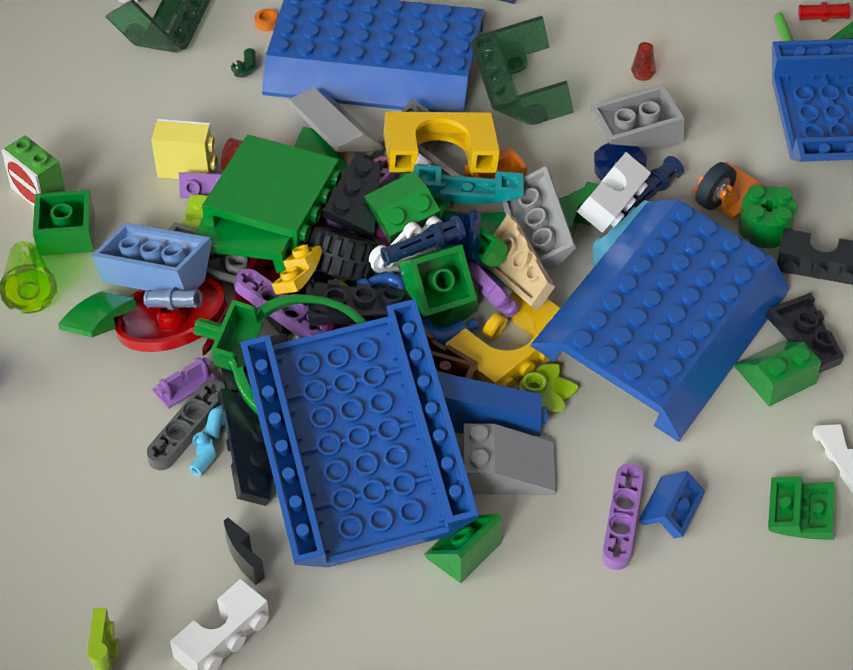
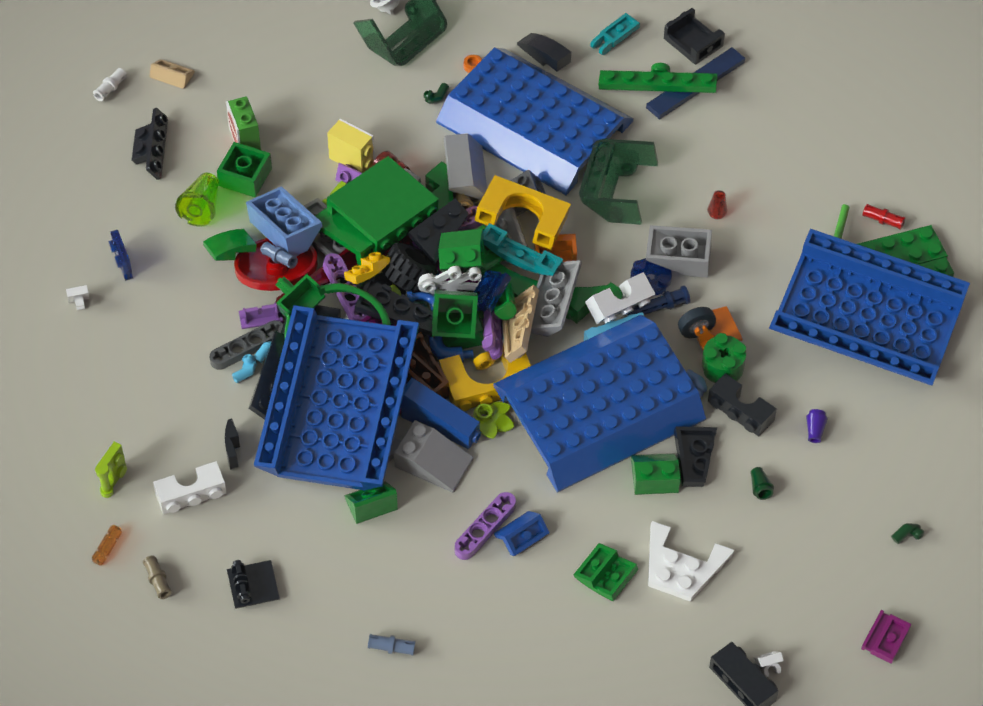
camera: 25 degrees right, 5 degrees up
(434, 237) = (467, 282): dark blue pin -> none

